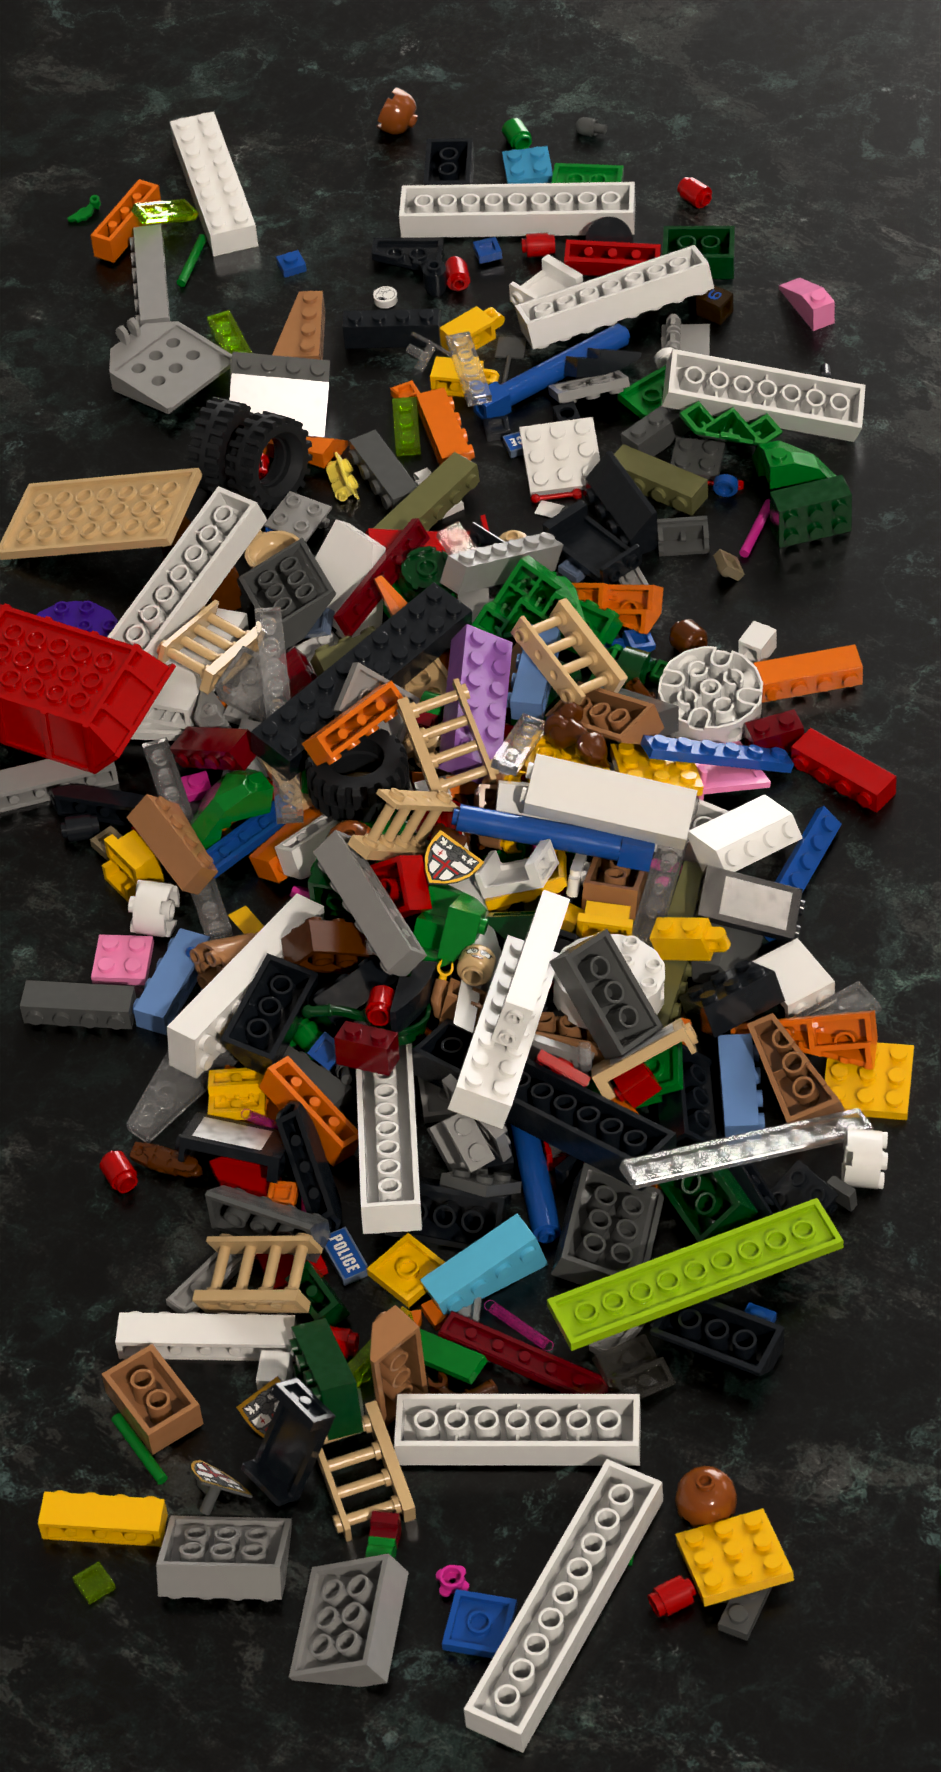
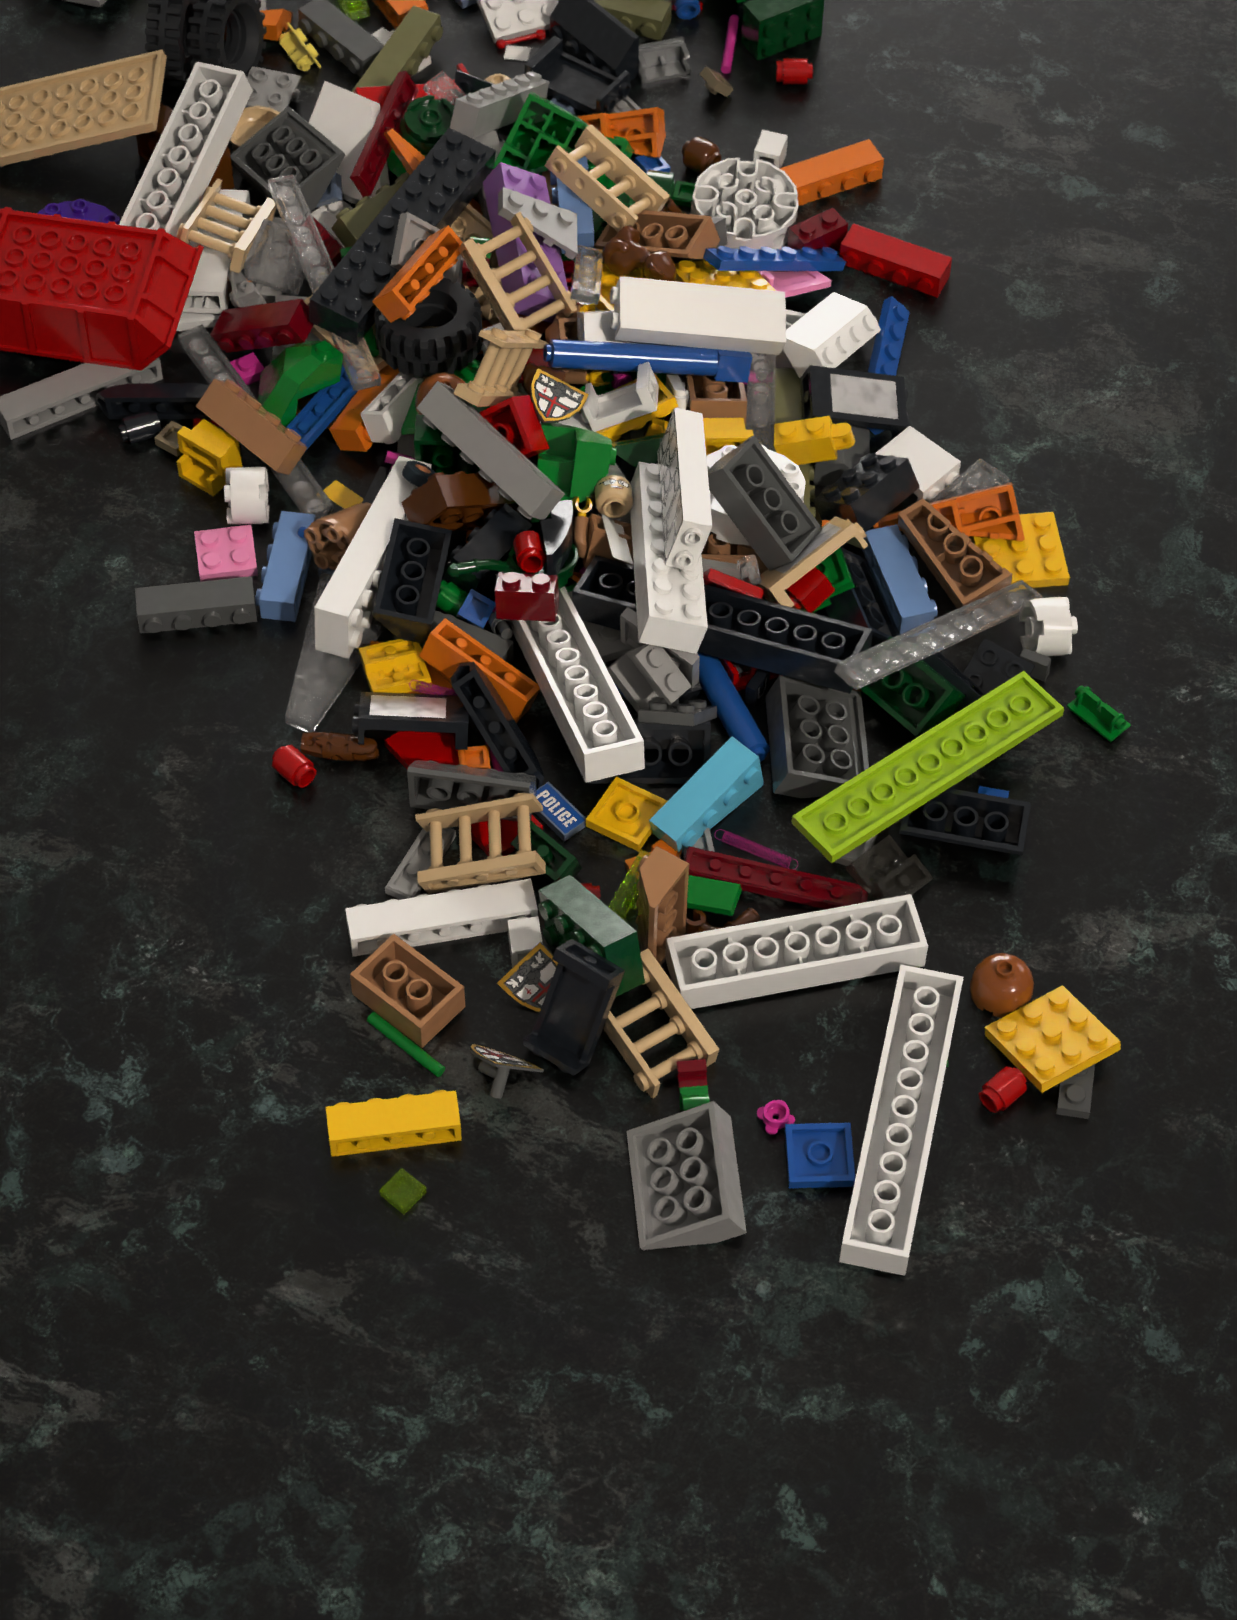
camera: 20 degrees left, 5 degrees up
(224, 1558) = (535, 1138): light grey slope -> none
(304, 910) = (416, 473): none -> black wheel
(496, 688) = (549, 221): none -> light grey wing
(808, 564) = (794, 71): none -> red brick
(889, 1252) = (1098, 714): none -> green hinge

